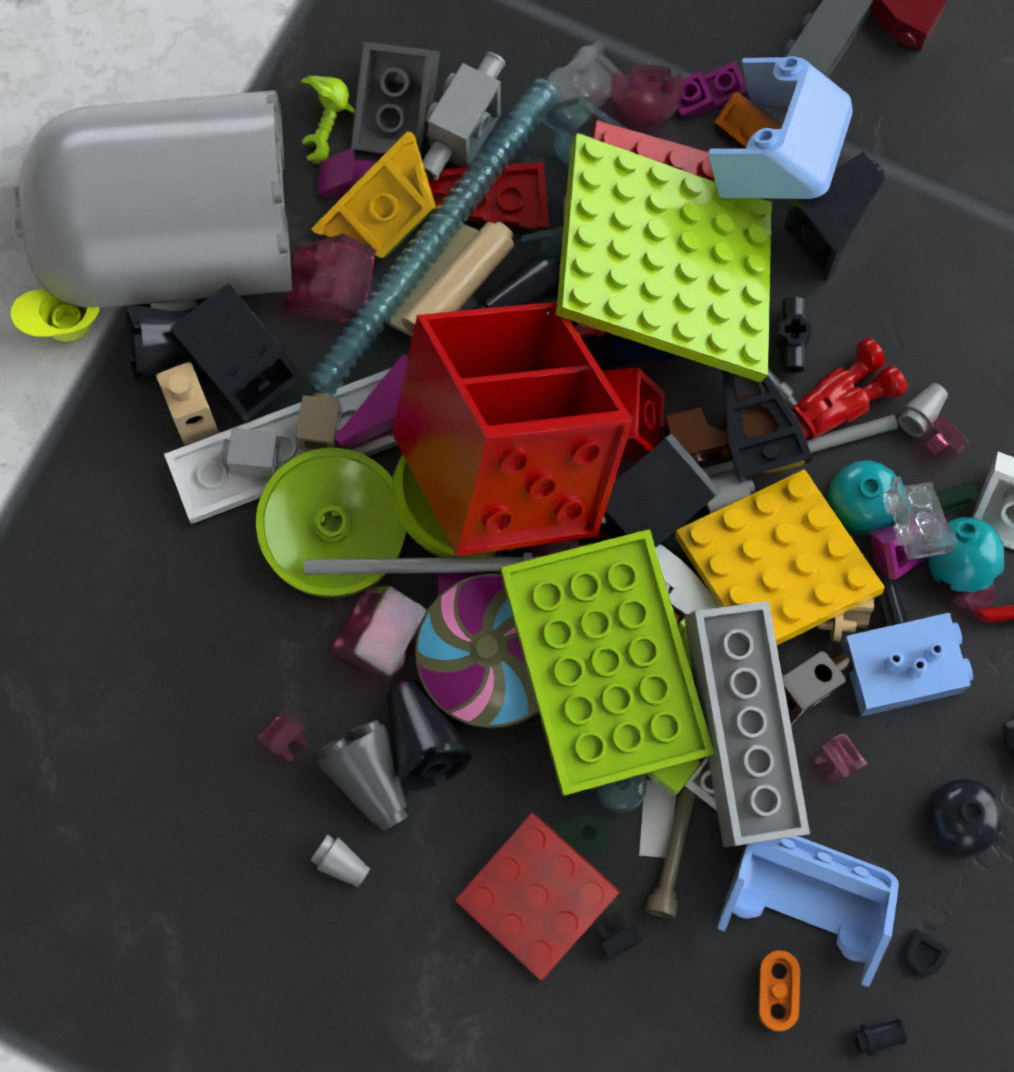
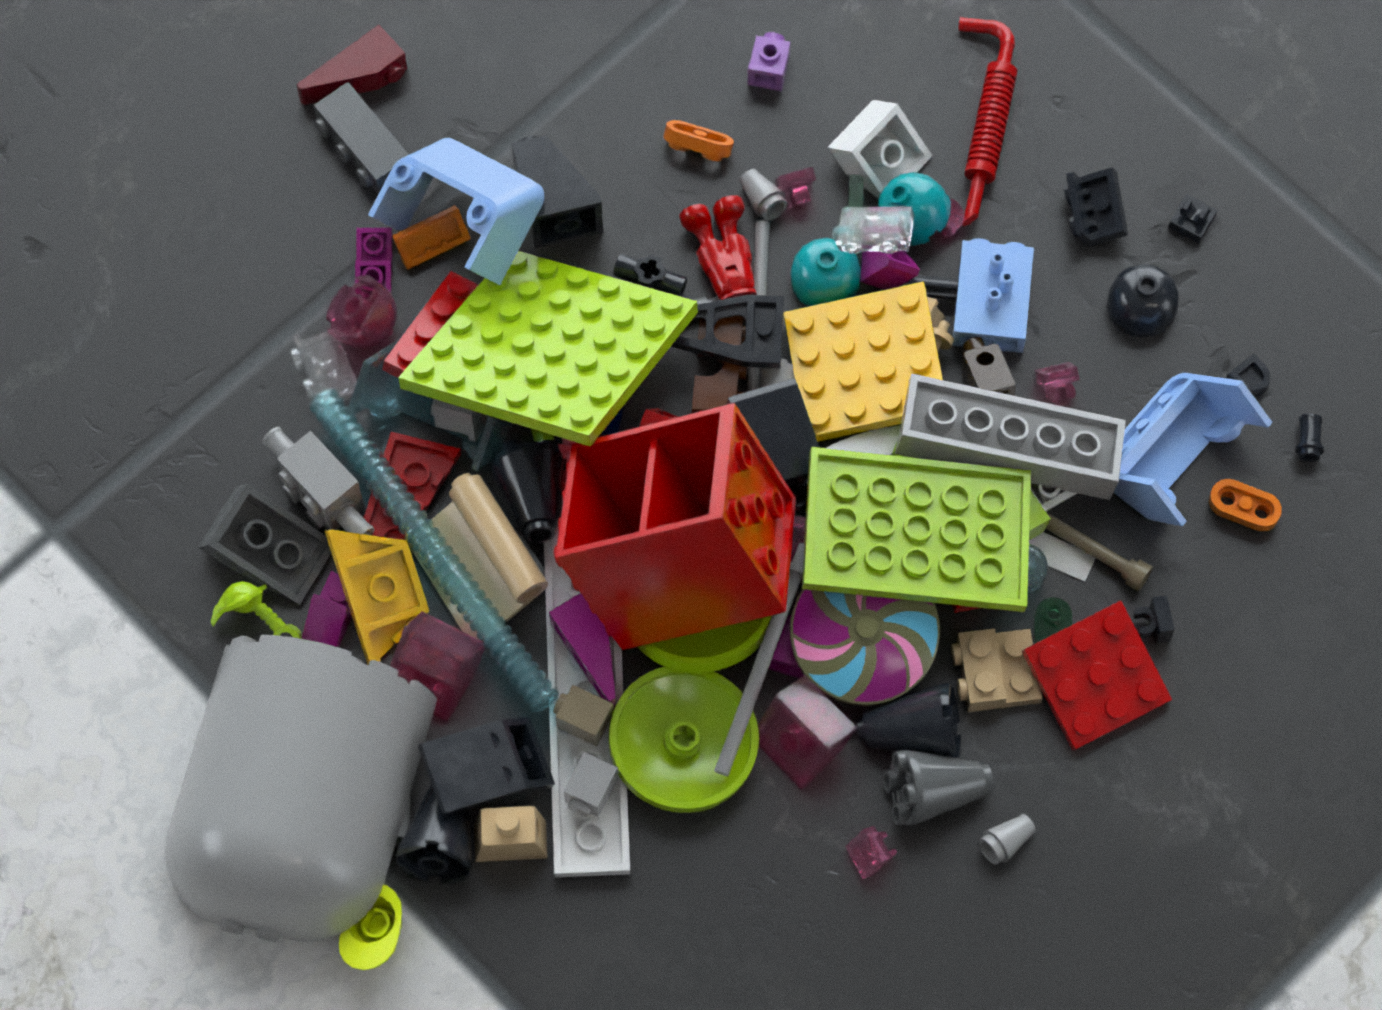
camera: 70 degrees left, 5 degrees down
(510, 792) = (994, 669): none -> tan plate
(956, 330) = (687, 136): none -> orange plate

